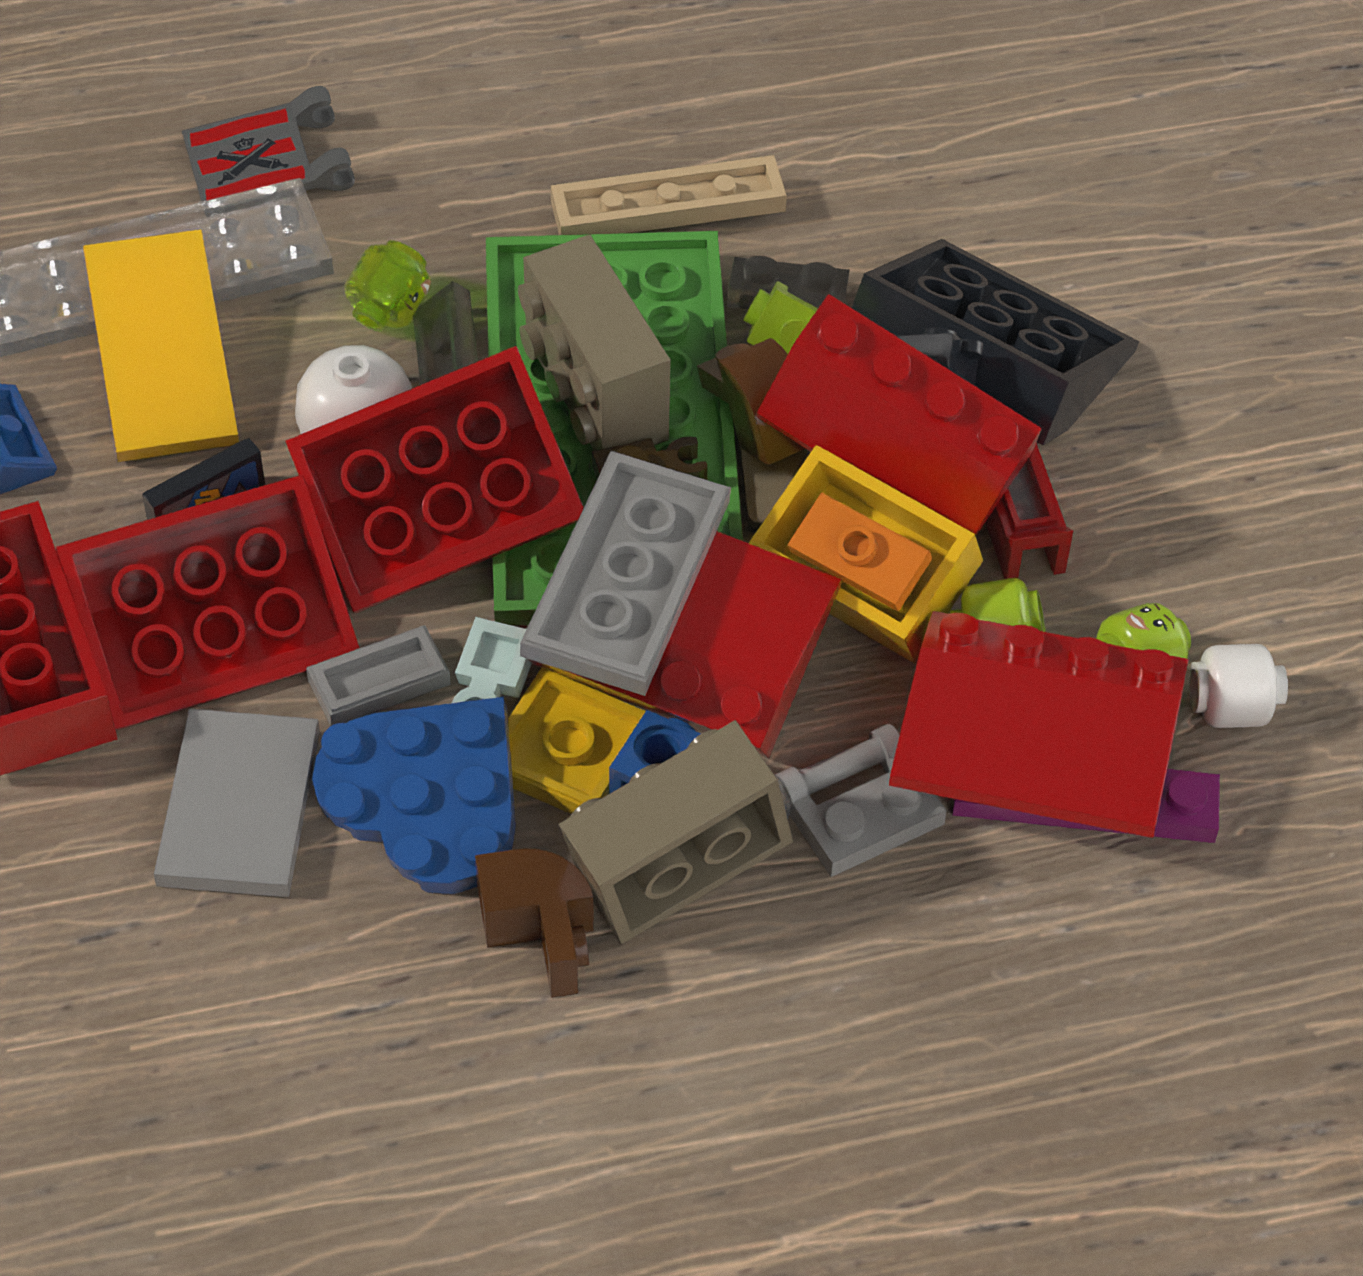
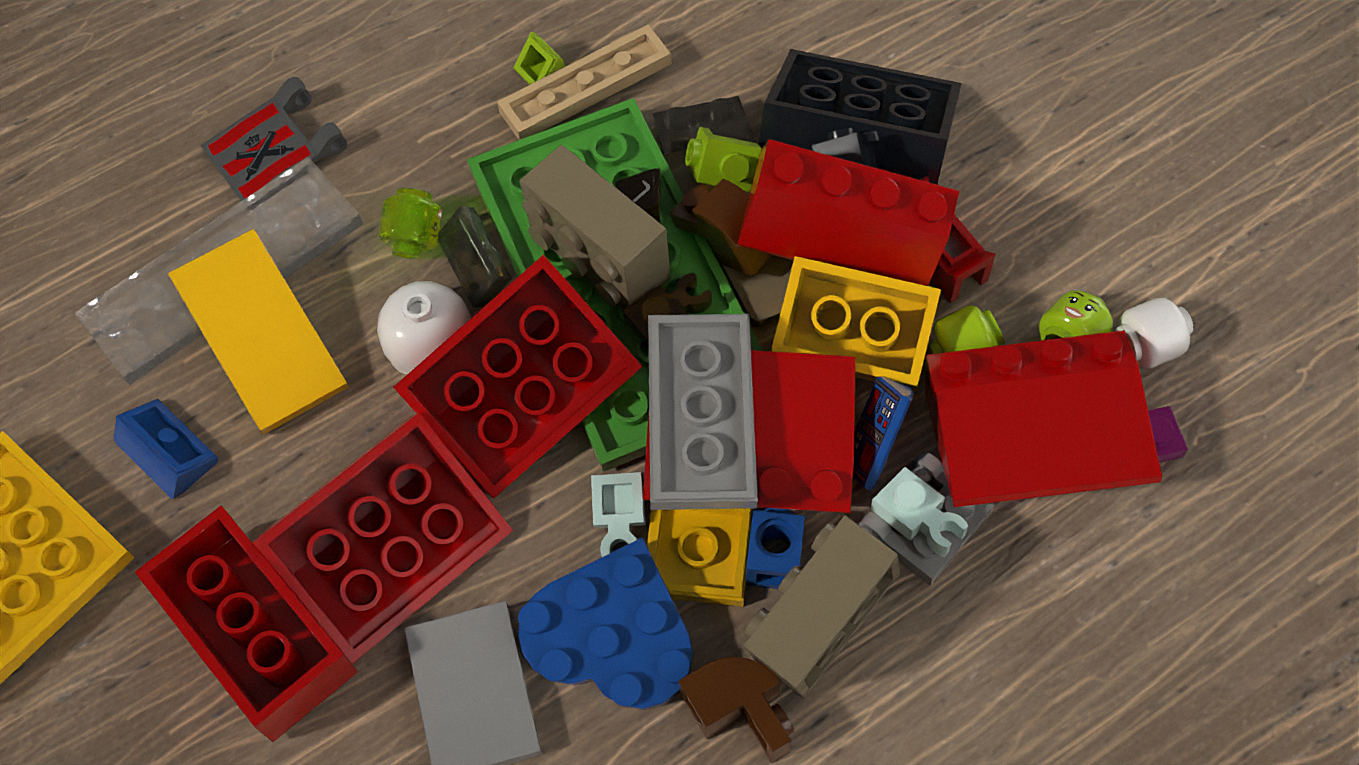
camera: 15 degrees left, 10 degrees up
(217, 477) = (341, 439): black tile -> none
(378, 676) = (533, 545): light grey tile -> none
(621, 154) = (537, 59): none -> lime slope
(680, 335) = (644, 191): none -> dark brown slope
(839, 678) = (878, 429): none -> slope
(844, 772) = (914, 507): none -> light aqua plate
(860, 551) = (861, 330): orange plate -> none

